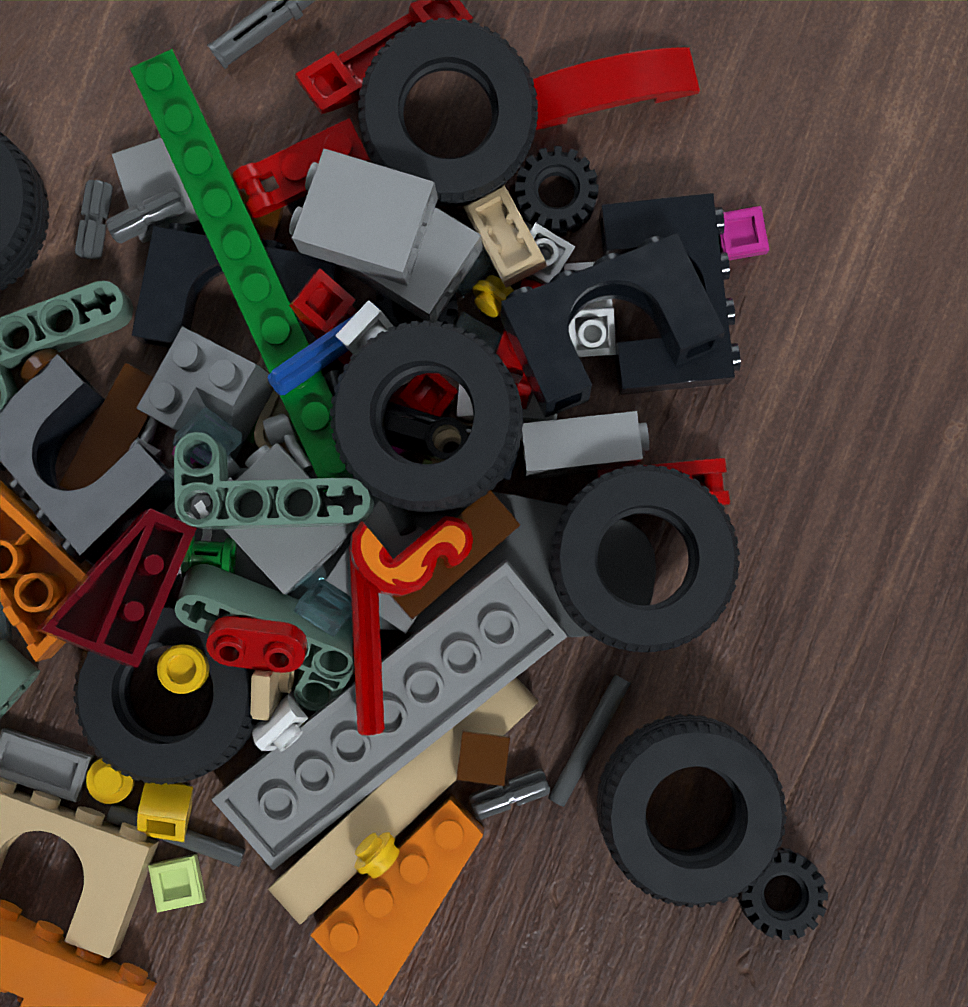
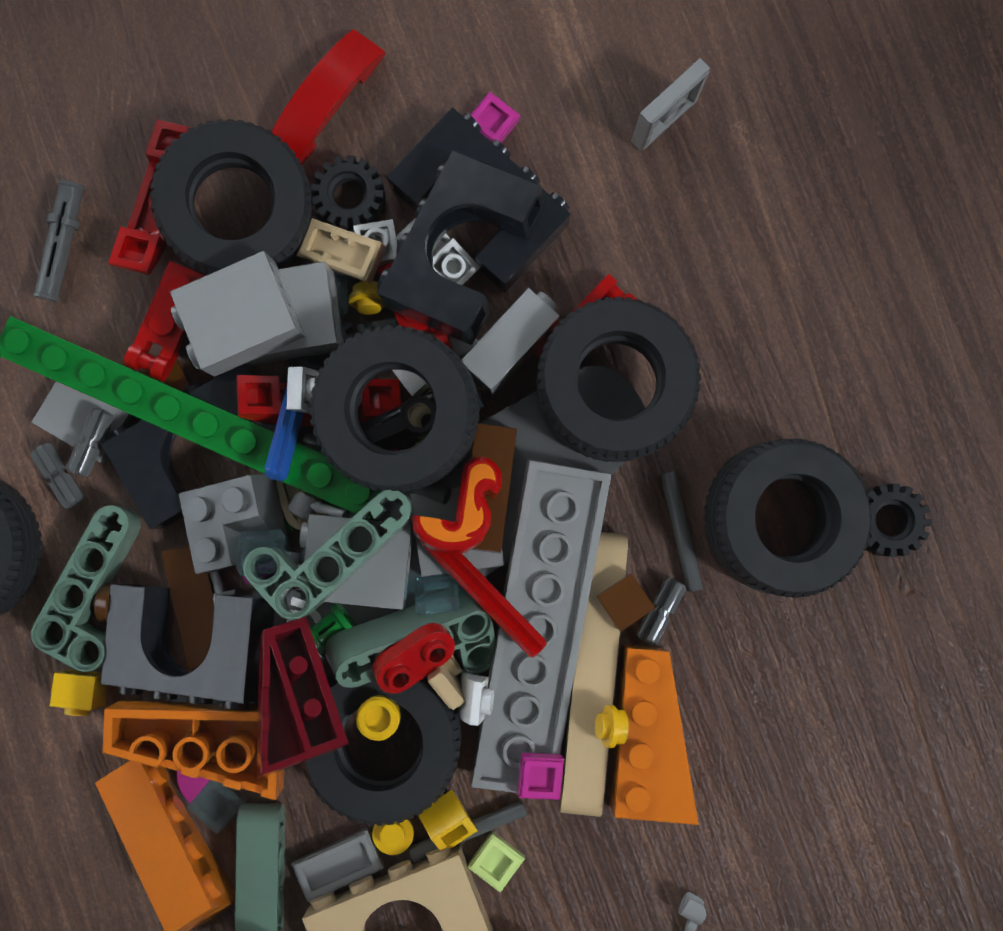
camera: 45 degrees left, 0 degrees up
(278, 842) = (540, 776): none -> dark pink tile
(908, 357) = (670, 105): none -> light grey tile

